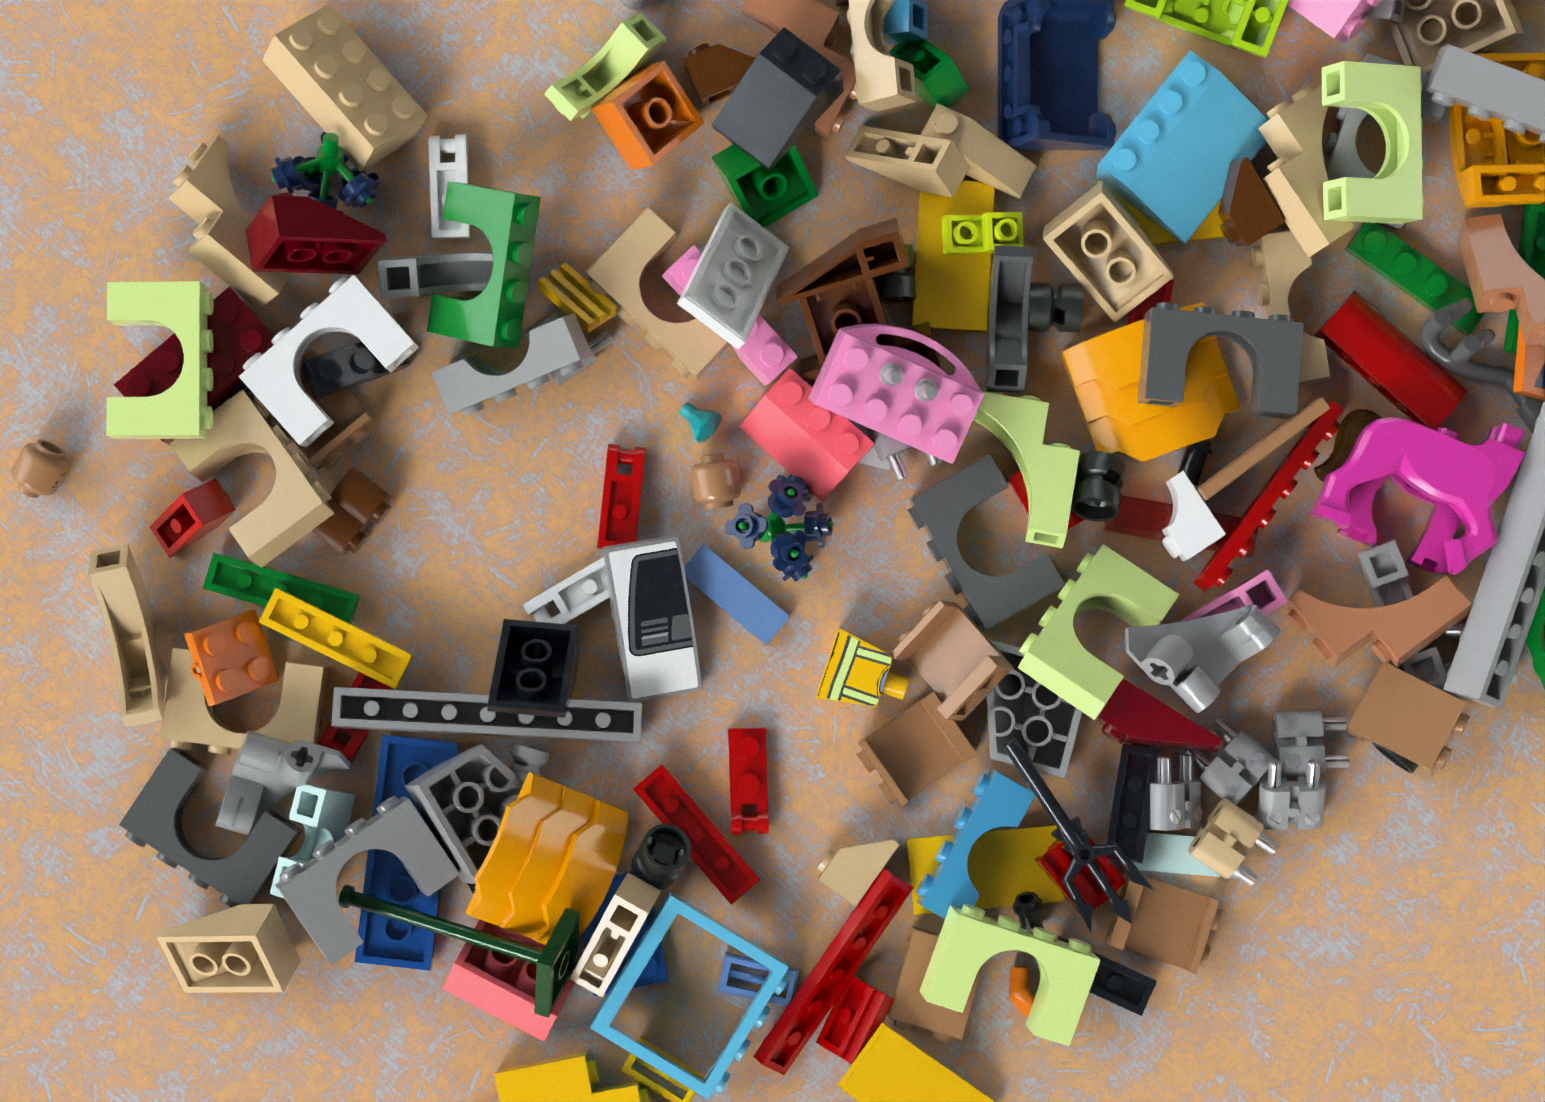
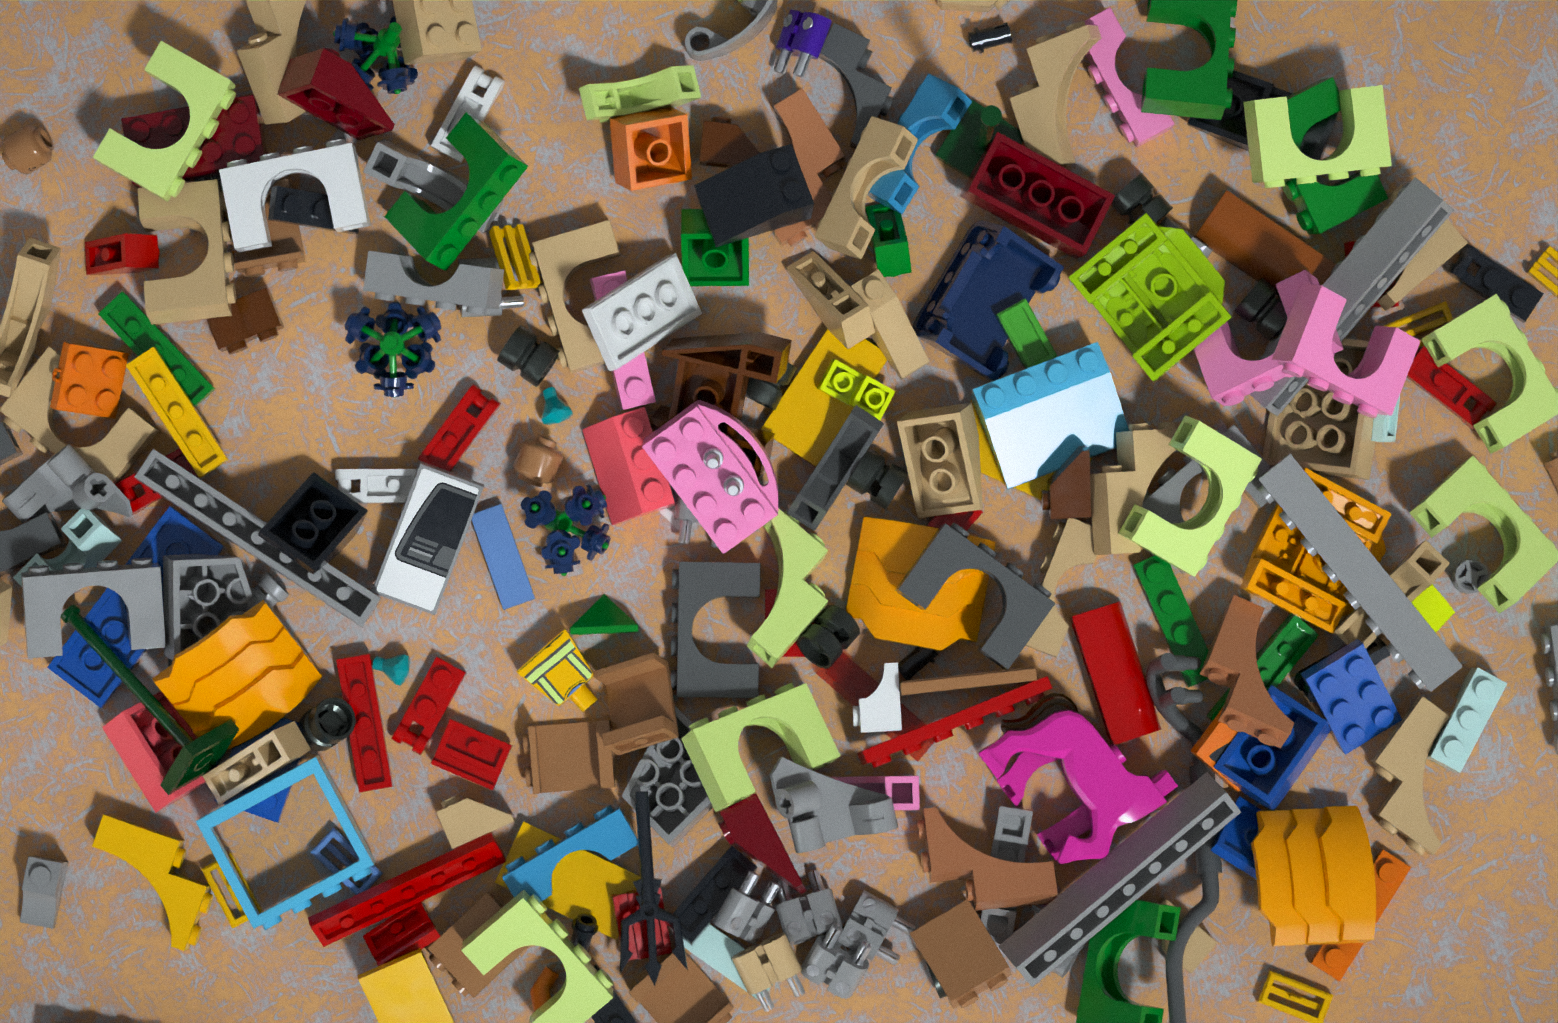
camera: 30 degrees right, 0 degrees up
(499, 431) = (394, 324): none -> dark blue plant
(646, 385) = (527, 355): none -> pearl dark grey wheel
(693, 763) = (395, 667): none -> teal rock
(818, 803) = (471, 754): none -> red plate
(868, 596) = (604, 618): none -> green slope
(1113, 87) = (1025, 334): none -> bright green tile

